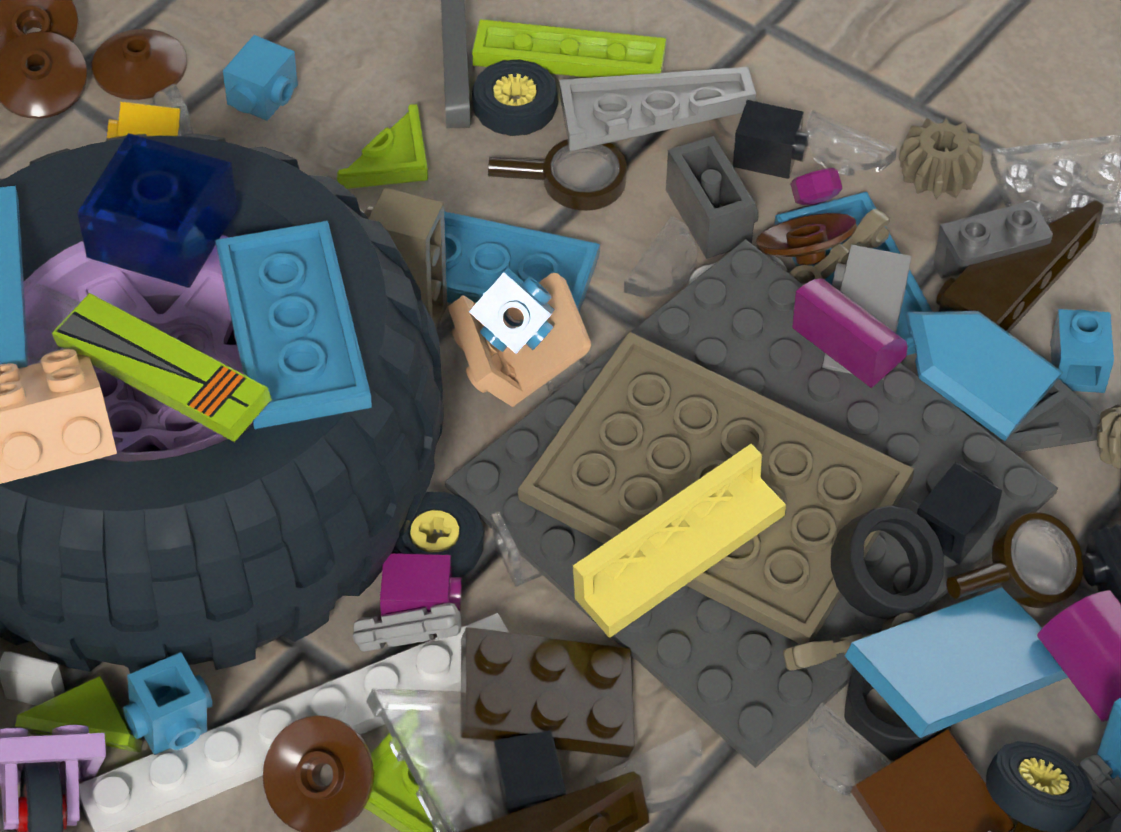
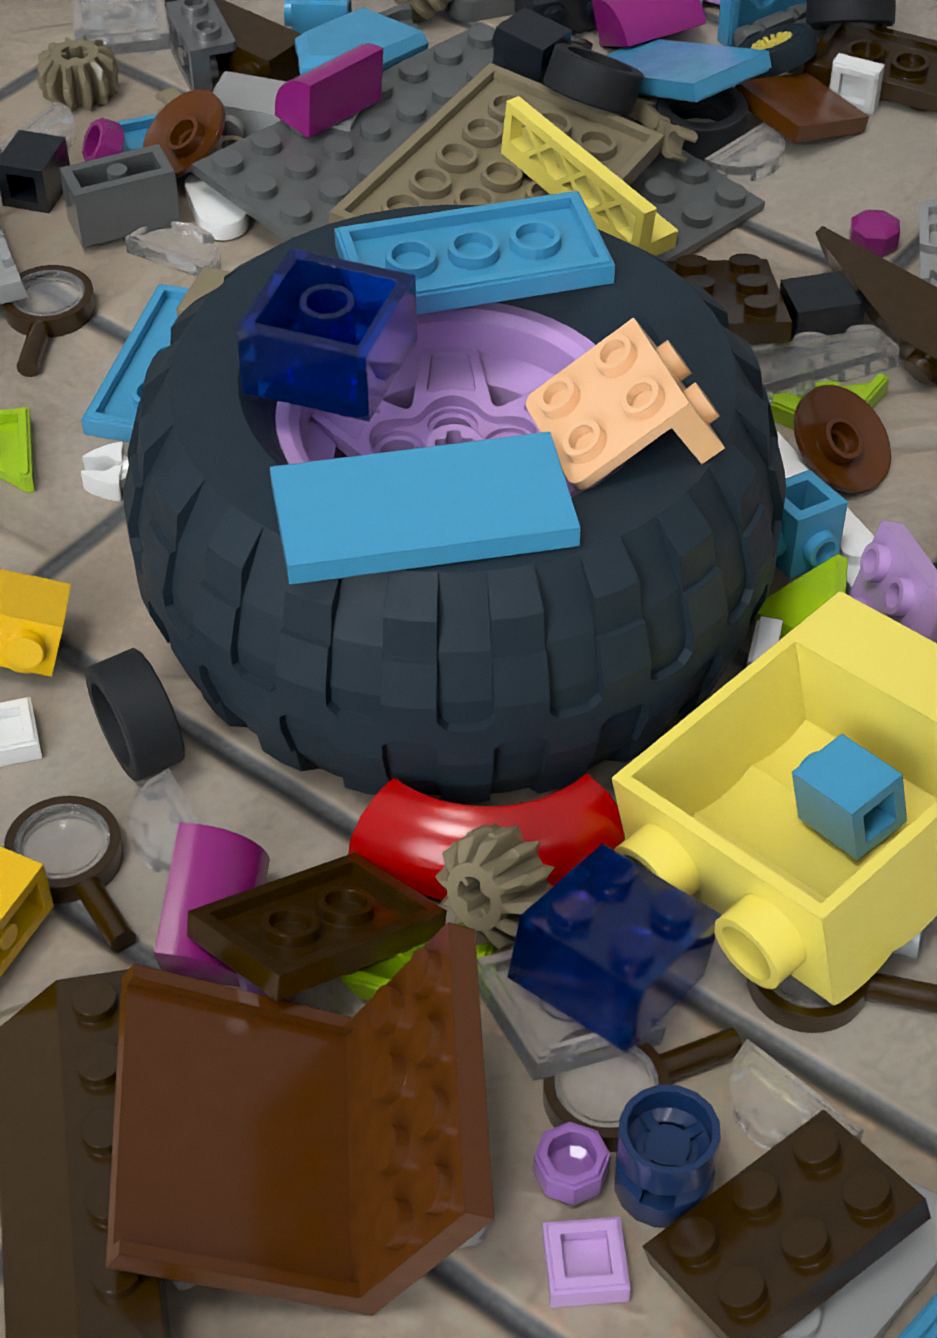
camera: 90 degrees left, 5 degrees down
(163, 367) = (553, 328): lime tile -> none
(665, 771) = (786, 253): clear tile -> none

